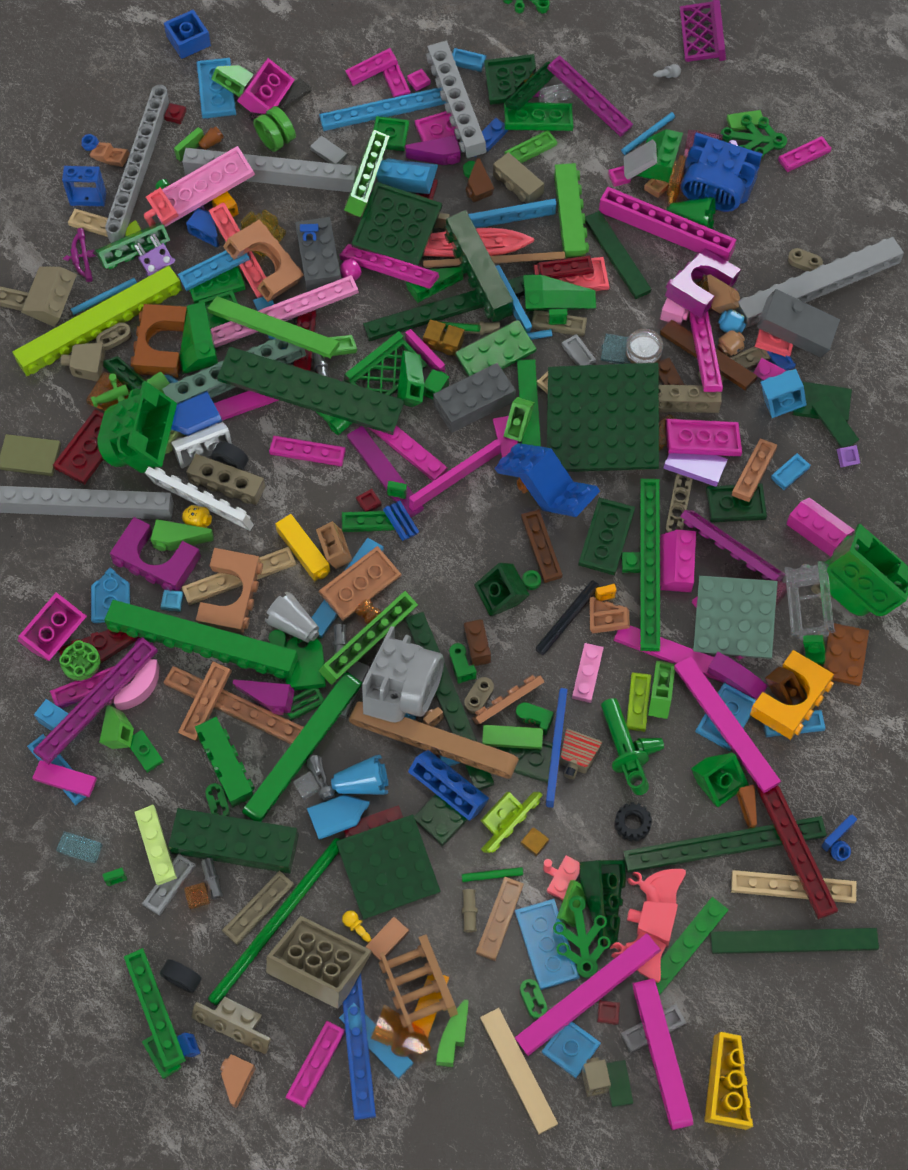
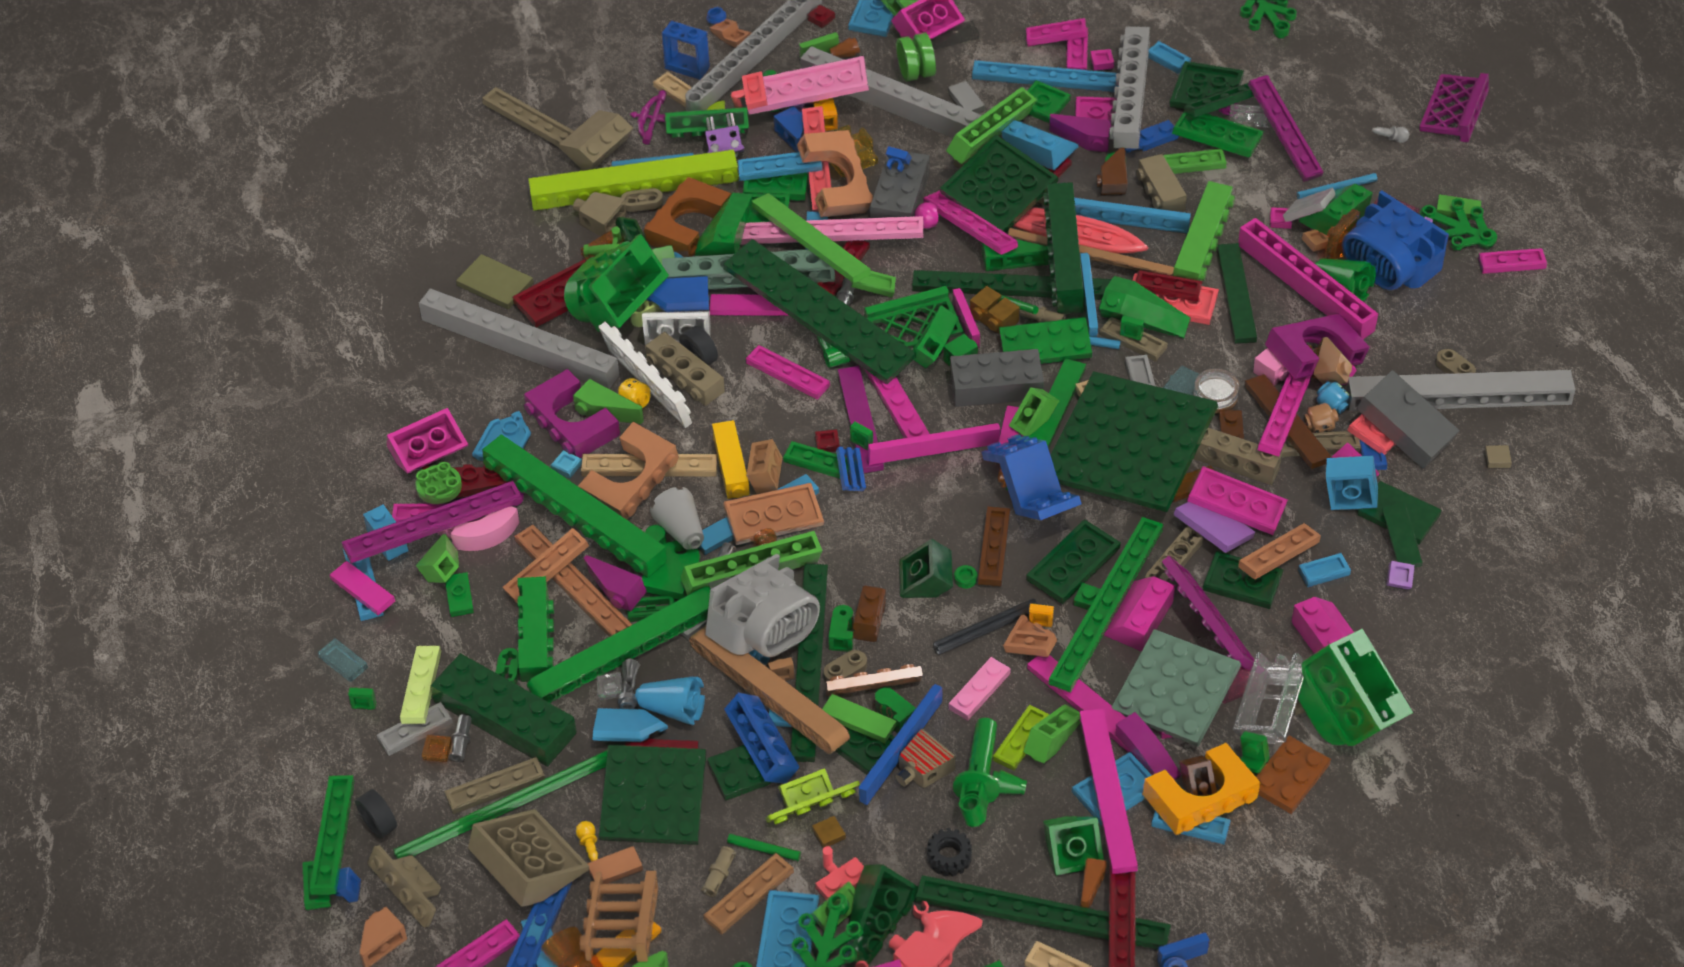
camera: 25 degrees right, 15 degrees down
(870, 327) = (1498, 456): none -> dark tan tile

